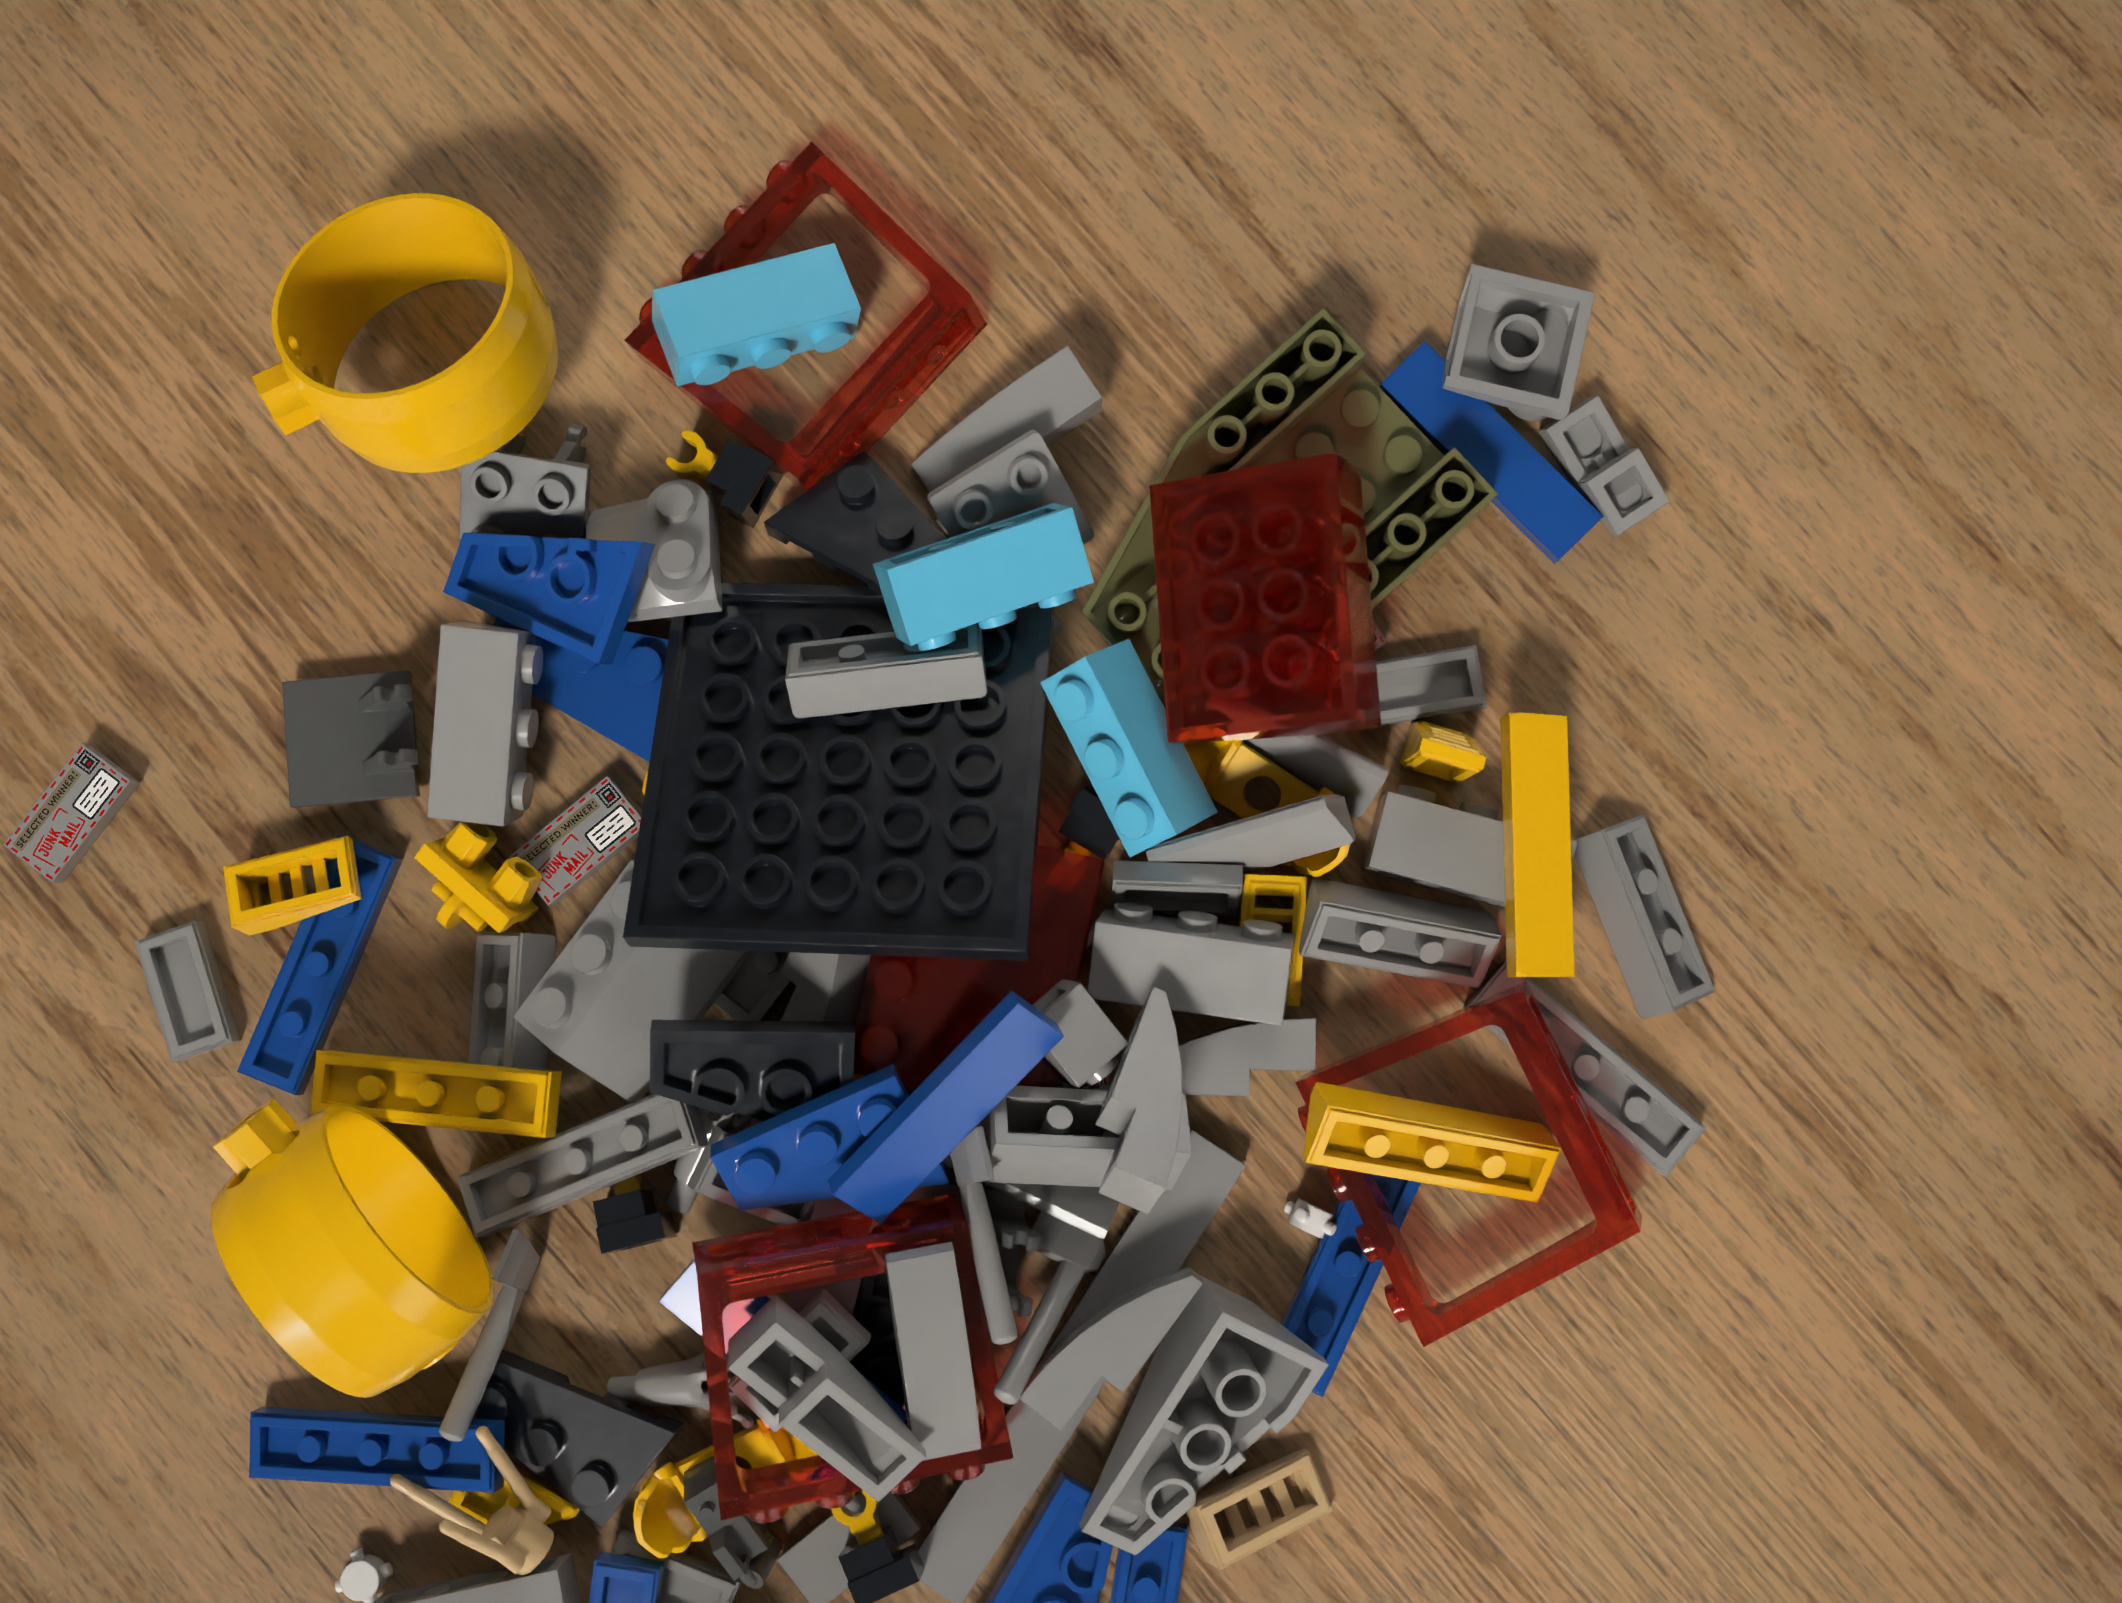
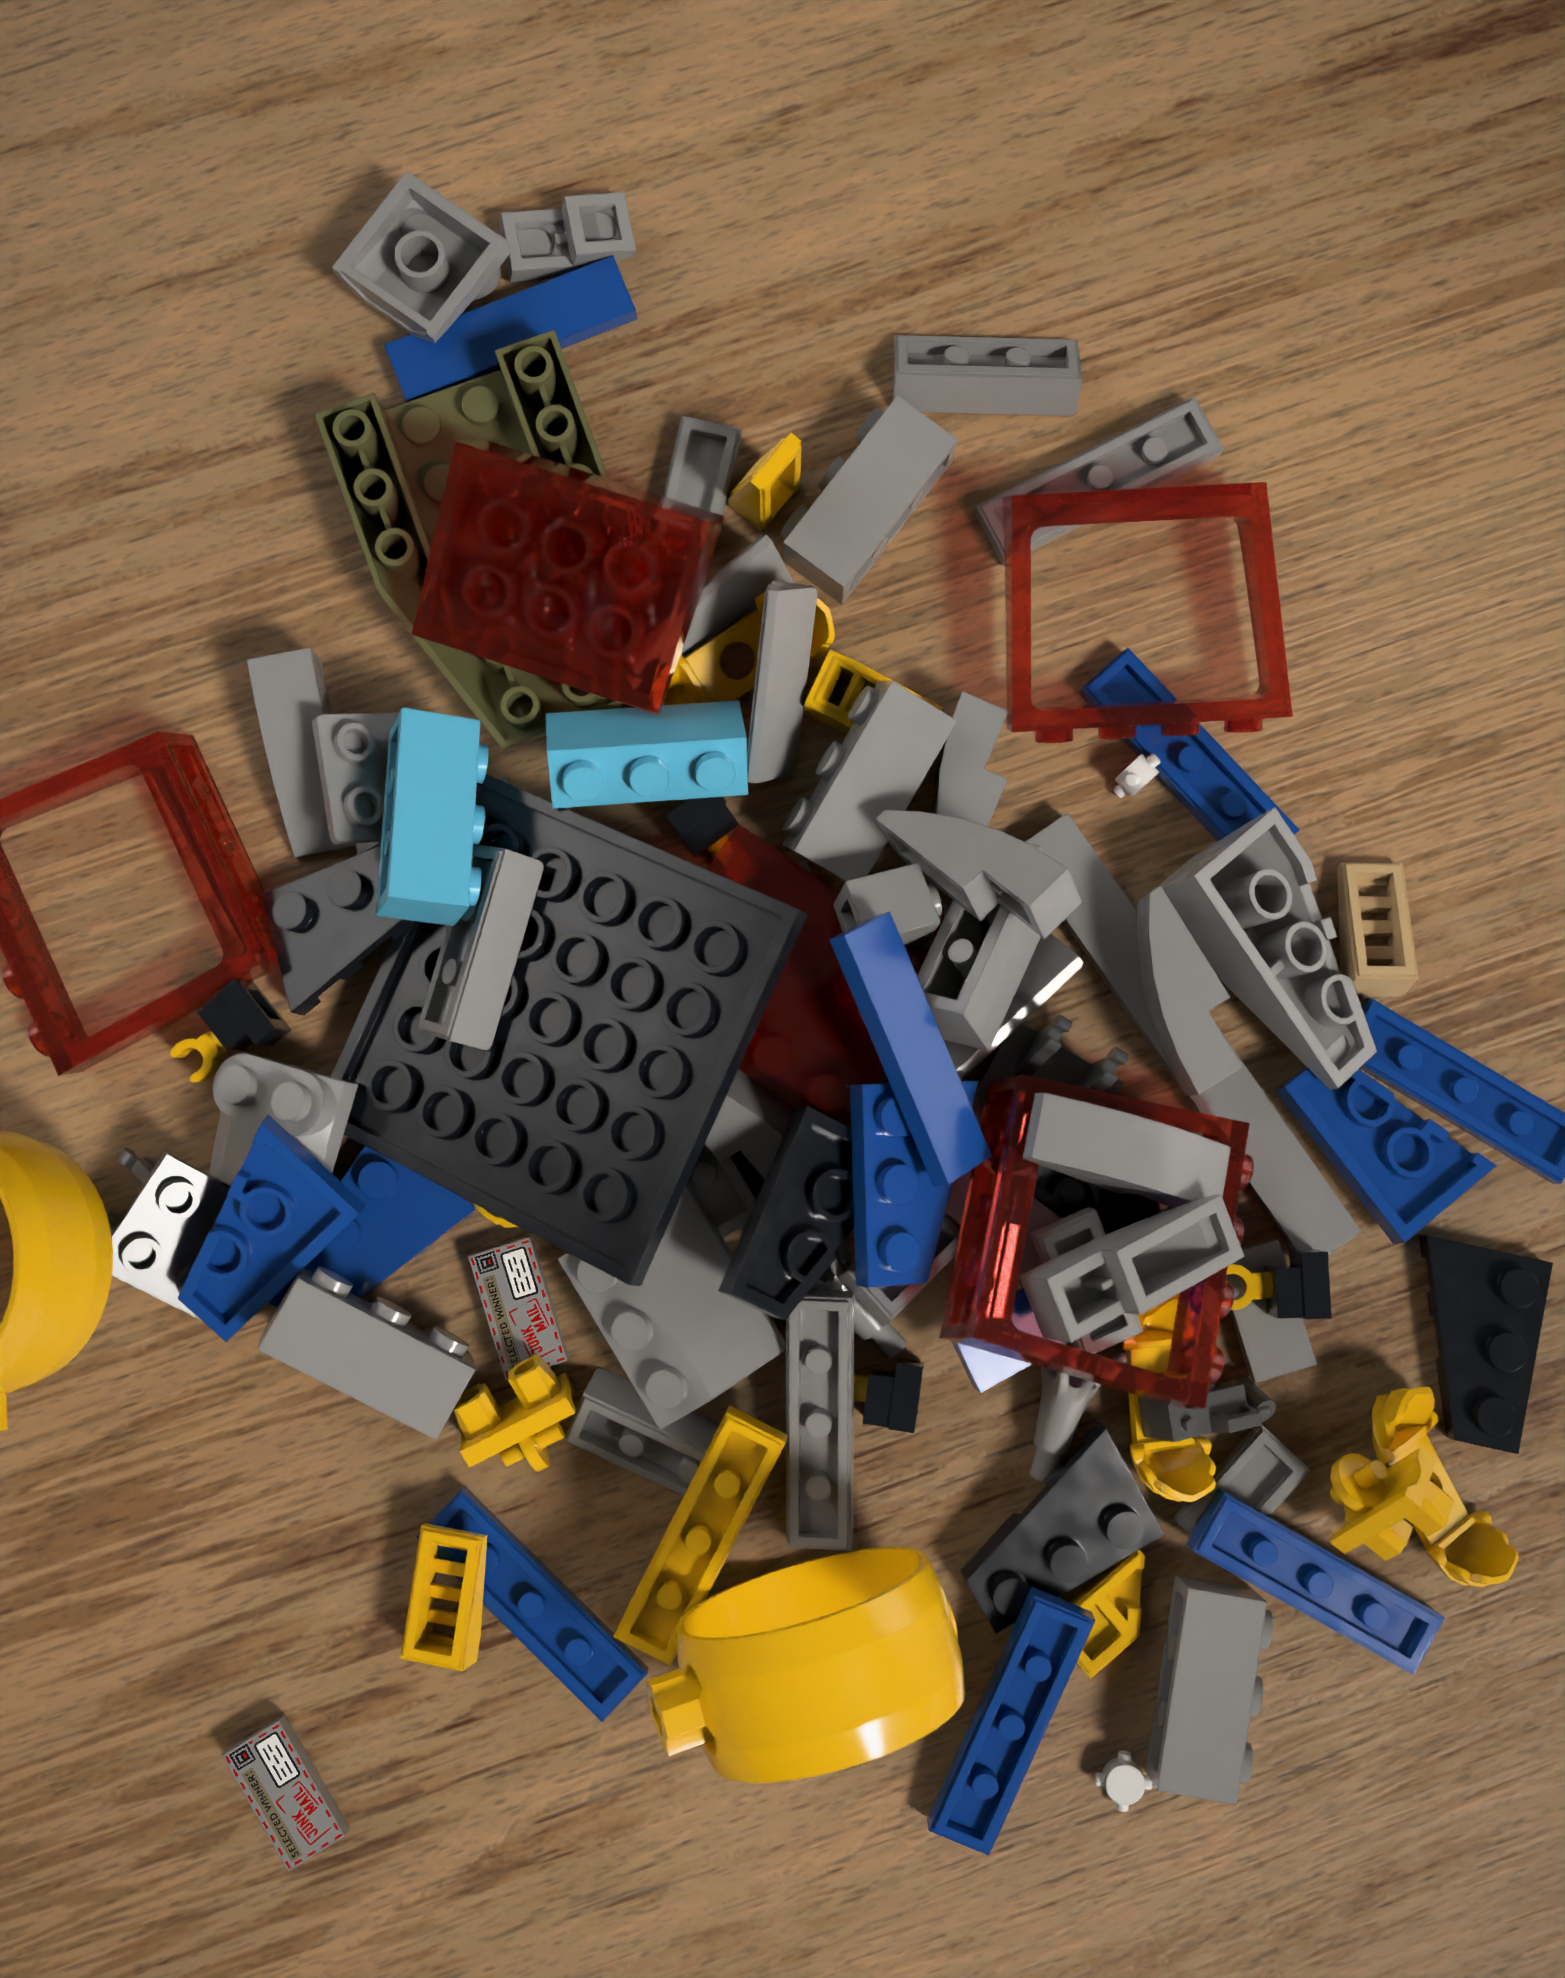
camera: 75 degrees left, 0 degrees up
(187, 991) = (504, 1742): light grey tile -> none
(350, 739) = (329, 1489): dark grey plate -> none
(511, 1535) = (1140, 1620): tan plant -> none
(515, 1272) = (903, 1526): light grey piece -> none
(755, 315) = (89, 939): medium azure brick -> none
(971, 1168) = (972, 1053): light grey piece -> none
(1077, 1254) = (1087, 996): light grey piece -> none
(1179, 887) = (791, 768): light grey tile -> none
(1398, 933) = (914, 591): light grey slope -> none
(1428, 1143) = (1112, 639): yellow slope -> none
(1537, 845) = (886, 430): yellow slope -> none

